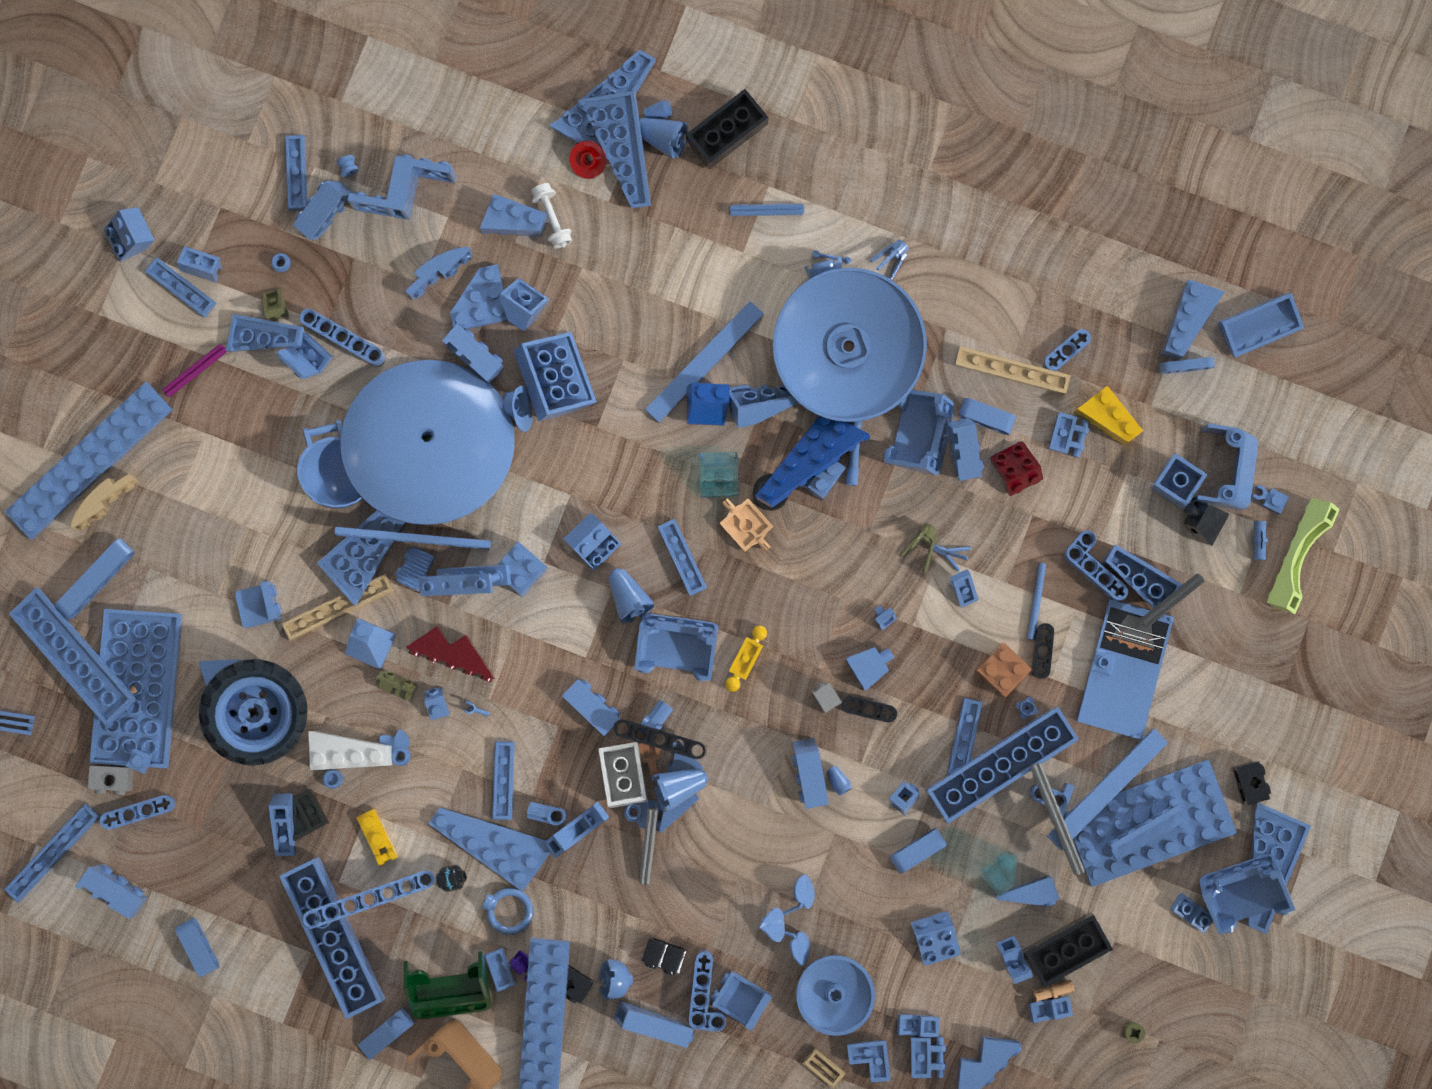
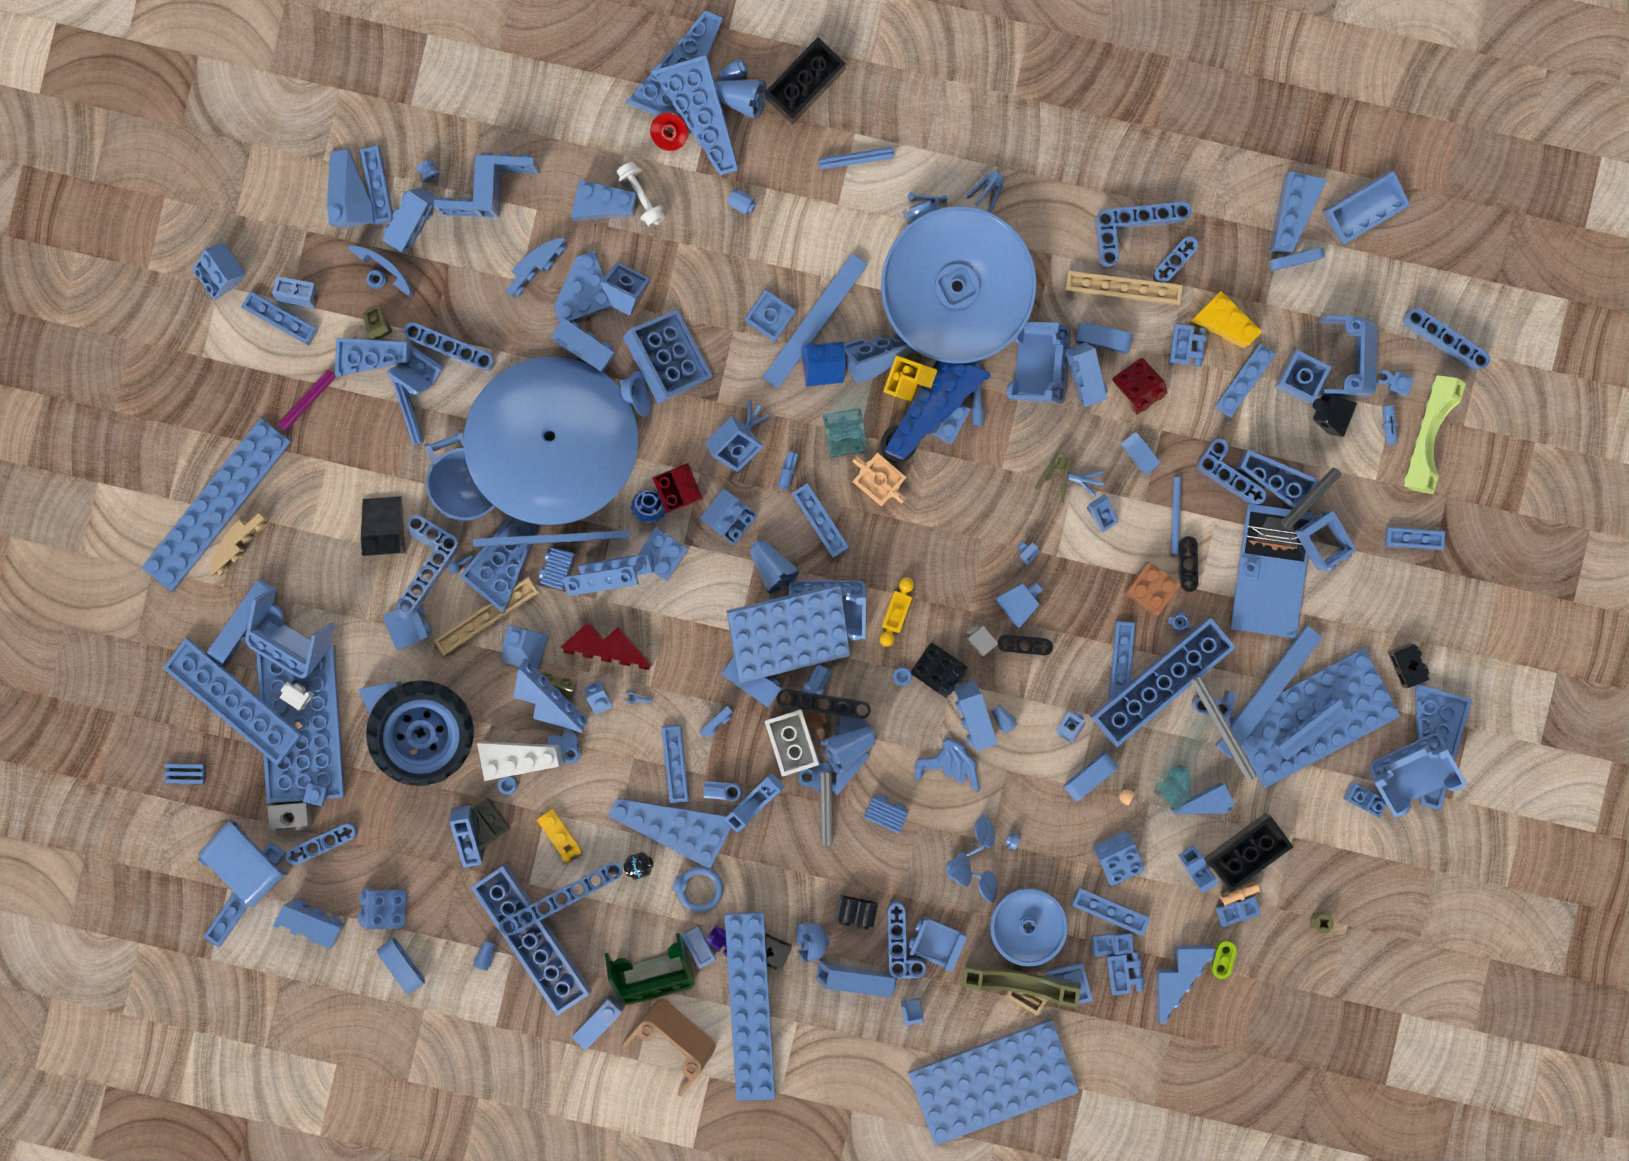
camera: 10 degrees left, 5 degrees up
(54, 821) = (241, 864): none -> medium blue windscreen
(131, 606) = (282, 644): none -> medium blue windscreen
(136, 659) = (295, 695): none -> white brick
(187, 886) = (382, 908): none -> medium blue bracket
(248, 504) = (382, 526): none -> black slope
(265, 178) = (347, 198): none -> medium blue wedge
(274, 238) = (366, 254): none -> medium blue slope
(282, 949) = (484, 956): none -> medium blue cone
(288, 549) = (429, 566): none -> medium blue beam
(292, 398) = (408, 413): none -> medium blue axle
(313, 553) = (454, 566): none -> medium blue hand
(387, 701) = (550, 703): none -> medium blue slope
(515, 519) = (648, 506): none -> blue piece
(544, 749) = (723, 716): none -> medium blue plate
(546, 506) = (677, 488): none -> dark red slope
(607, 470) = (733, 444): none -> medium blue slope
(626, 451) = (750, 420): none -> medium blue plant
(634, 663) = (788, 633): none -> medium blue plate
(649, 236) = (741, 201): none -> medium blue brick
(657, 504) = (788, 470): none -> medium blue axle
(661, 350) = (770, 315): none -> medium blue tile
(706, 1066) = (912, 1011): none -> medium blue panel
(707, 859) = (886, 813): none -> medium blue brick
(742, 724) = (902, 676): none -> medium blue tile
(780, 722) = (939, 670): none -> black bracket
(782, 816) = (953, 761): none -> medium blue animal
(786, 427) = (905, 377): none -> yellow brick
(798, 1044) = (1049, 988): none -> olive arch
(831, 905) = (1013, 840): none -> medium blue plate
(920, 991) = (1110, 911): none -> medium blue plate
(951, 876) = (1126, 796): none -> light nougat hinge
(1009, 535) = (1140, 453): none -> medium blue slope
(1030, 1056) = (1225, 959): none -> lime plate
(1031, 307) = (1133, 221): none -> medium blue beam
(1121, 477) = (1244, 380): none -> medium blue plate
(1195, 636) = (1340, 534): none -> medium blue window
(1272, 656) = (1415, 538): none -> medium blue tile
(1334, 466) = (1455, 339): none -> medium blue beam

